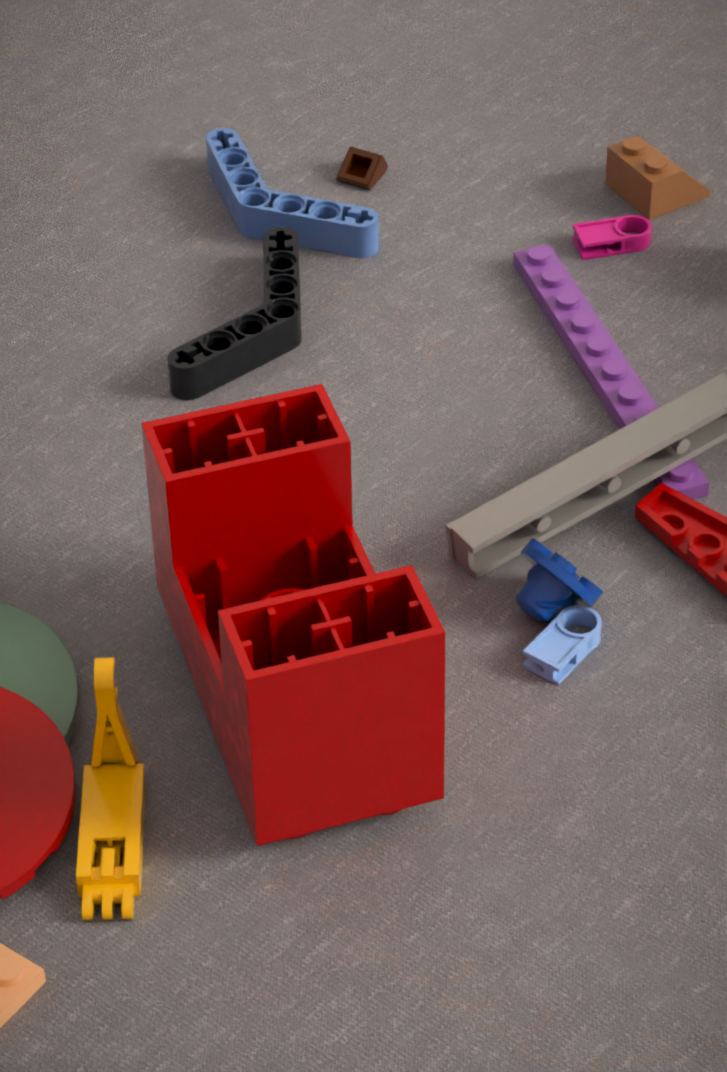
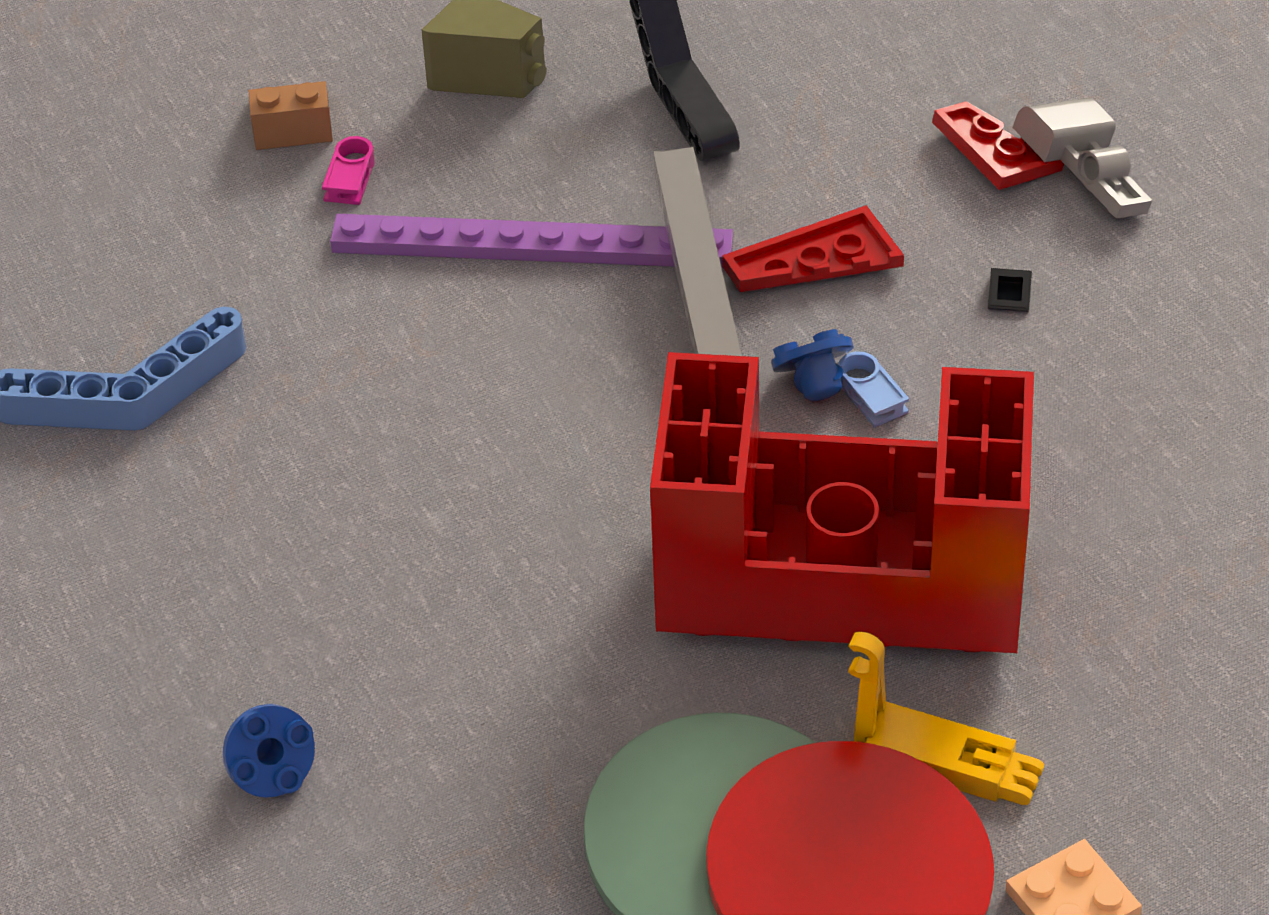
camera: 65 degrees left, 5 degrees up
(250, 338) = (302, 429): black beam -> none
(362, 168) = (109, 306): reddish brown slope -> none

